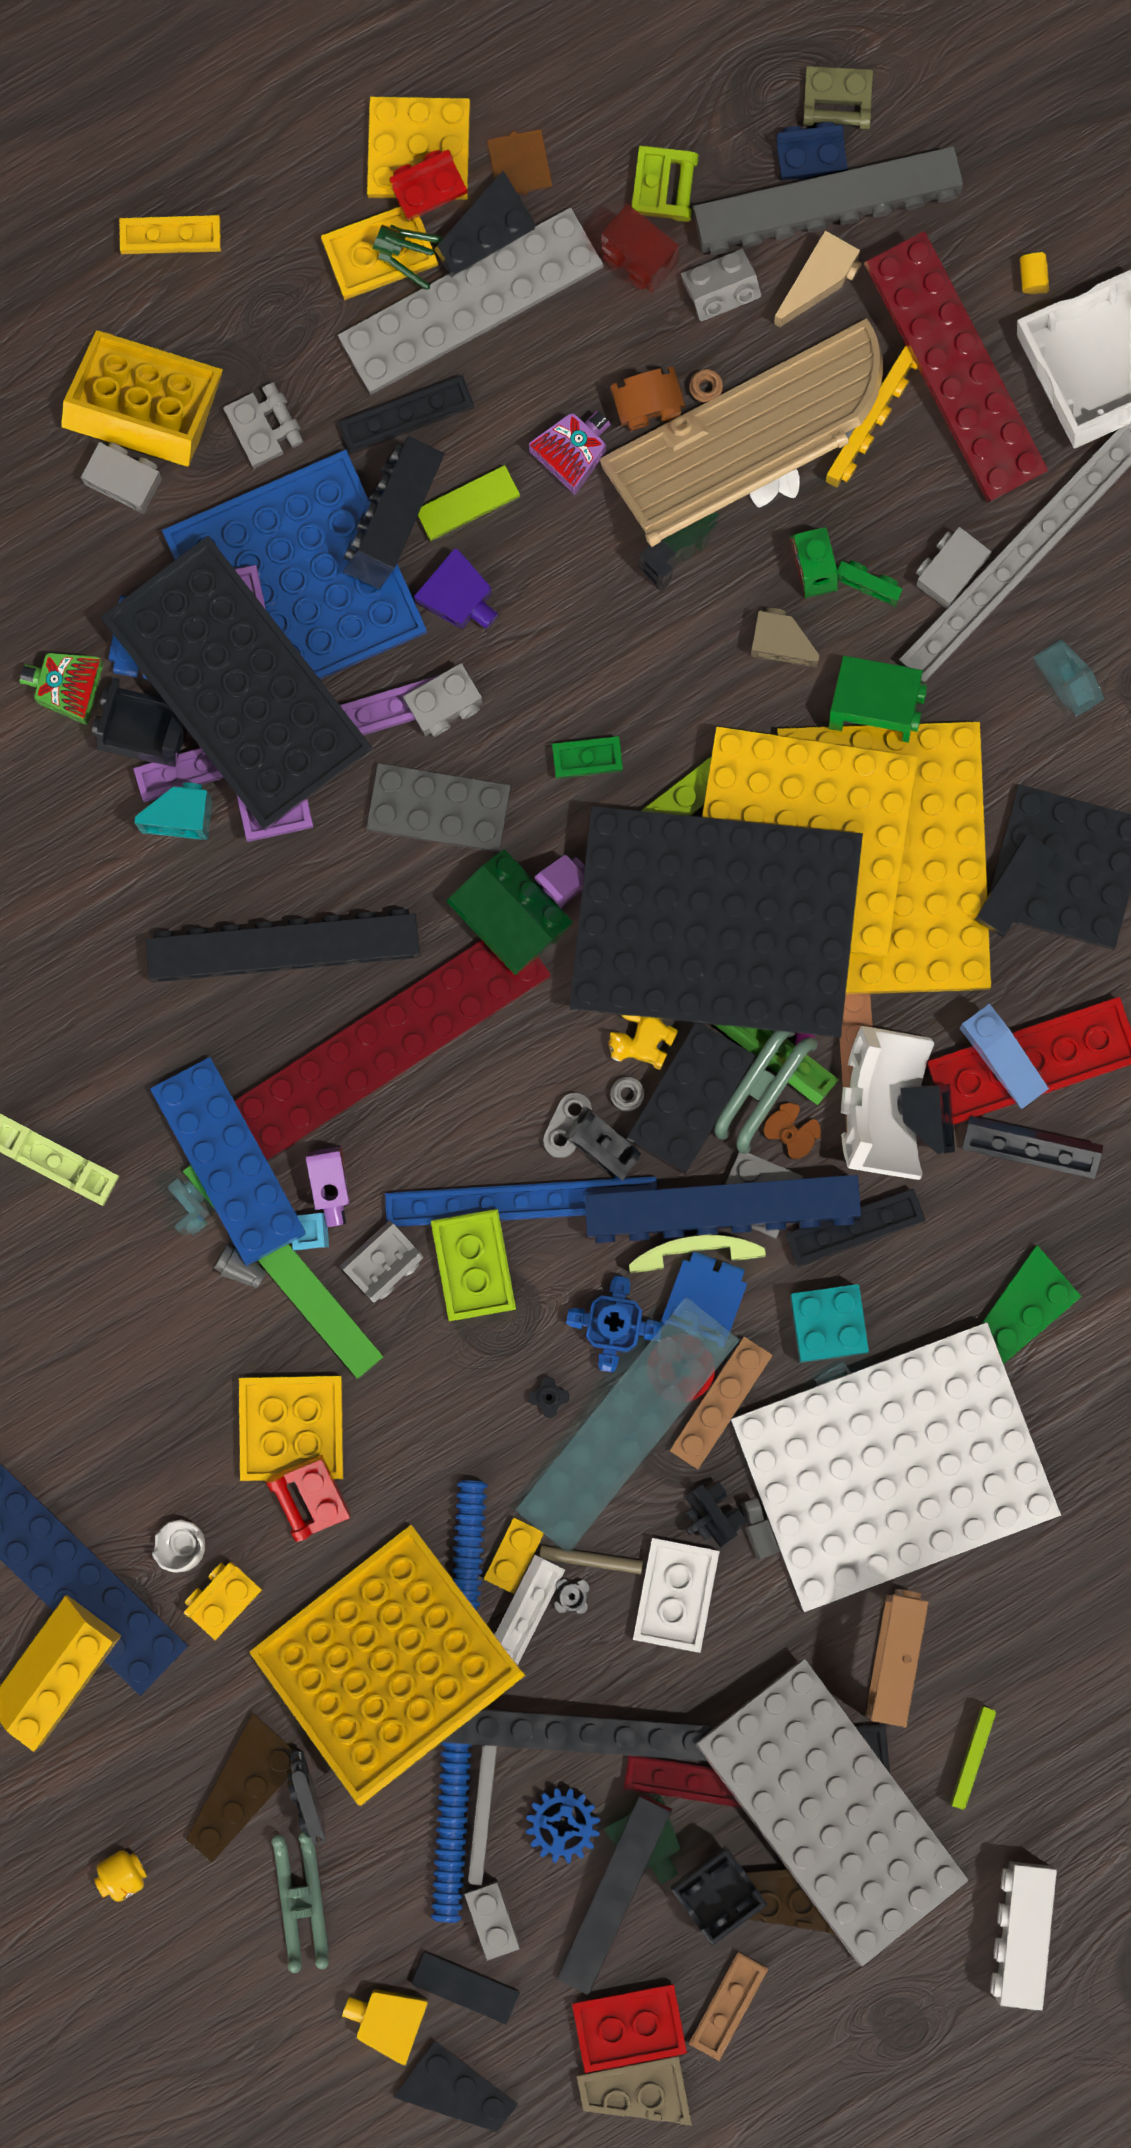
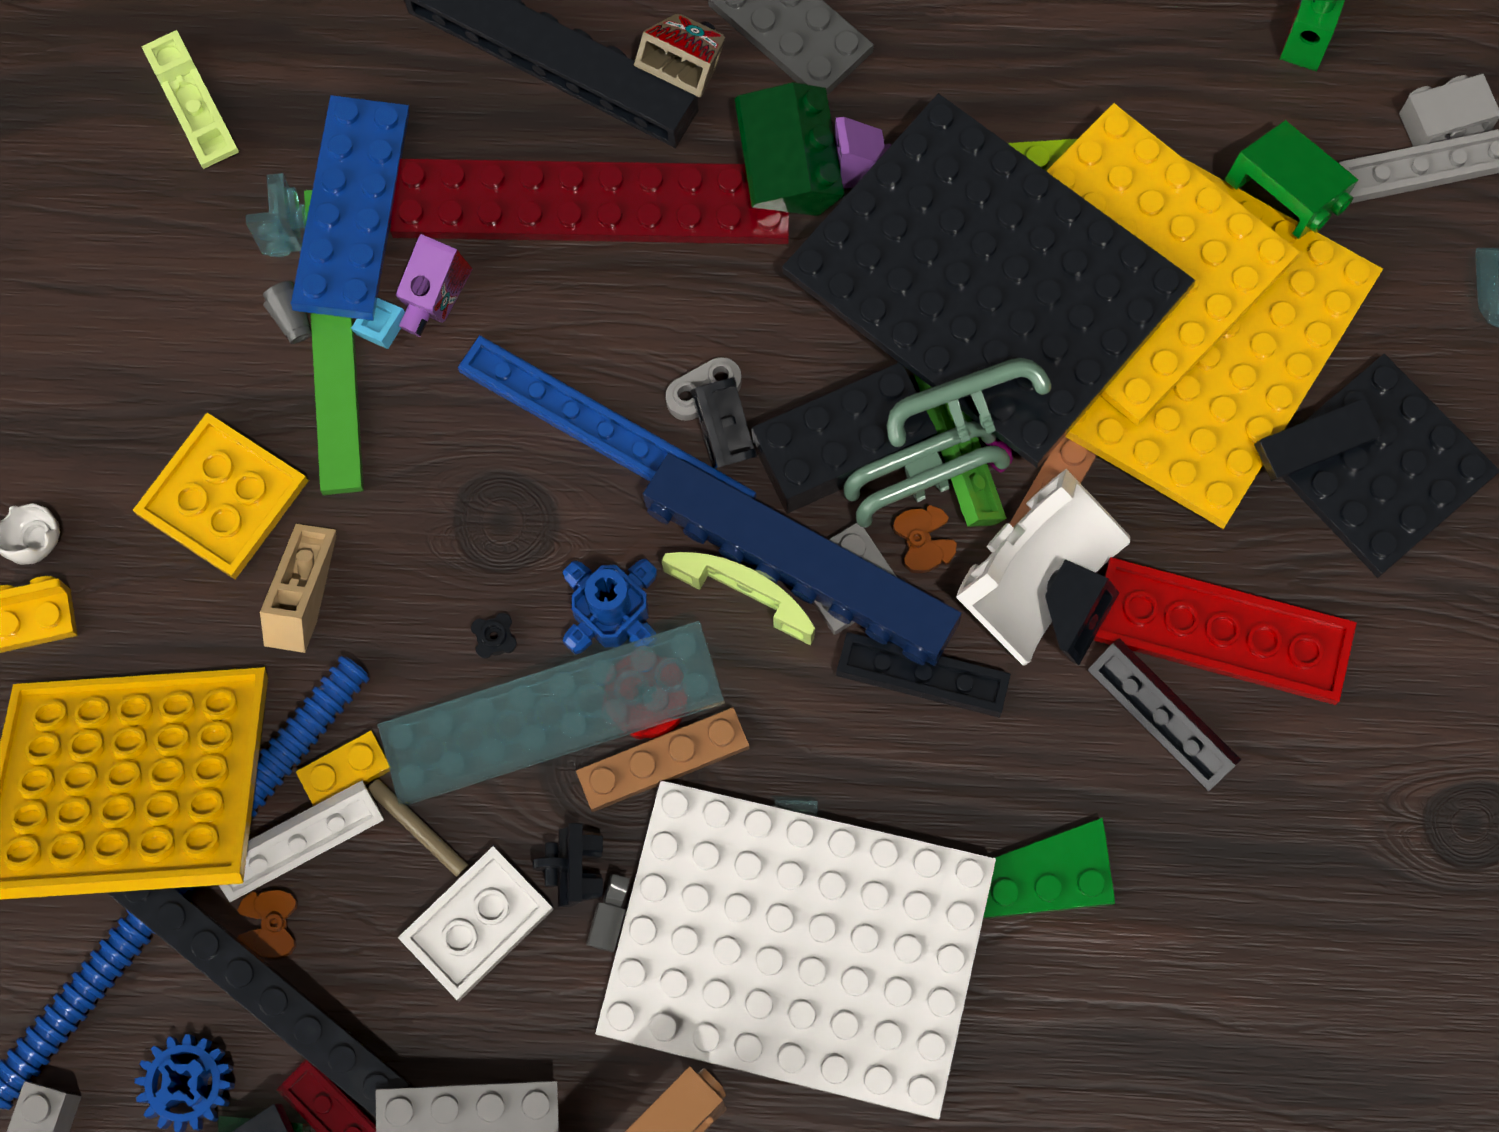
camera: 30 degrees right, 10 degrees down
(318, 1493) = (197, 572): plate -> none
(382, 1262) = (427, 394): light grey bracket -> none
(385, 889) = (681, 52): none -> dark tan torso
(393, 1454) = (297, 589): none -> tan slope
(473, 1264) = (514, 457): lime tile -> none
(482, 1815) = (111, 1015): light grey tile -> none
(548, 1697) = (272, 909): none -> dark orange piece
(578, 1603) = (358, 851): plate -> none
(587, 757) = (966, 65): green plate -> none
(635, 1086) = (783, 385): light grey plate -> none
(644, 1044) = (834, 359): yellow animal -> none
(712, 1291) = (732, 641): blue plate -> none
(759, 1020) = (967, 385): none -> sand green piece
(782, 640) = (1231, 75): dark tan slope -> none
(829, 1323) = (828, 750): teal brick -> none
(880, 588) = (1354, 77): green plate -> none
(1004, 1056) = (1195, 597): medium blue slope -> none

